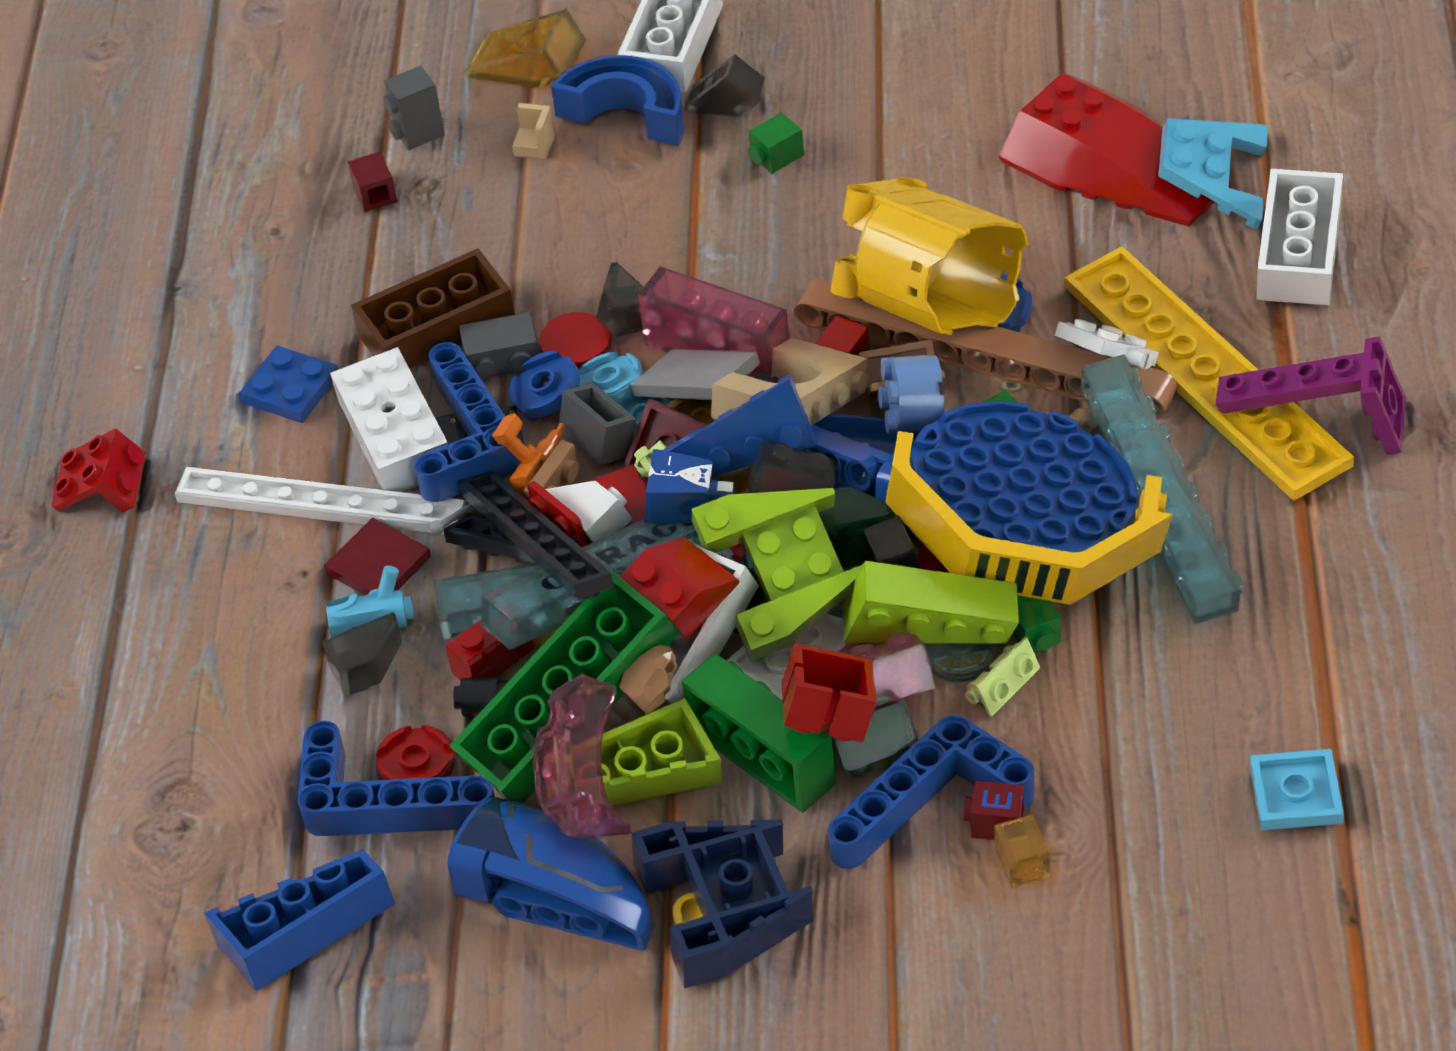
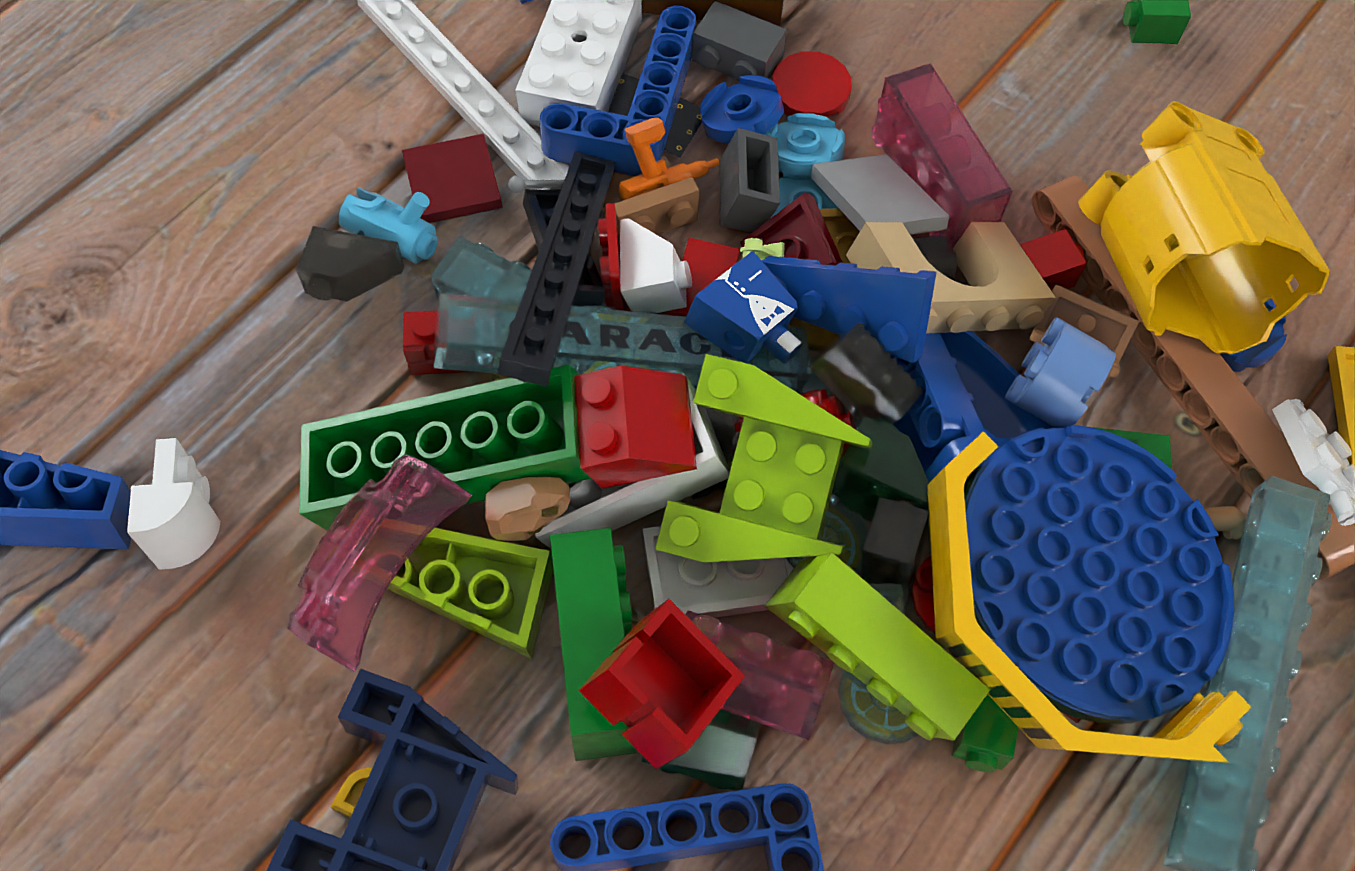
camera: 30 degrees right, 15 degrees up
(377, 806) = (184, 400): blue beam -> none
(413, 848) = (173, 514): none -> white brick
(415, 754) = (289, 398): red tile -> none
(476, 693) = (396, 382): black brick -> none
(543, 877) = (239, 598): blue panel -> none
(620, 302) = (868, 76): clear smoke slope -> none
(1006, 677) = (923, 767): yellowish green hinge -> none

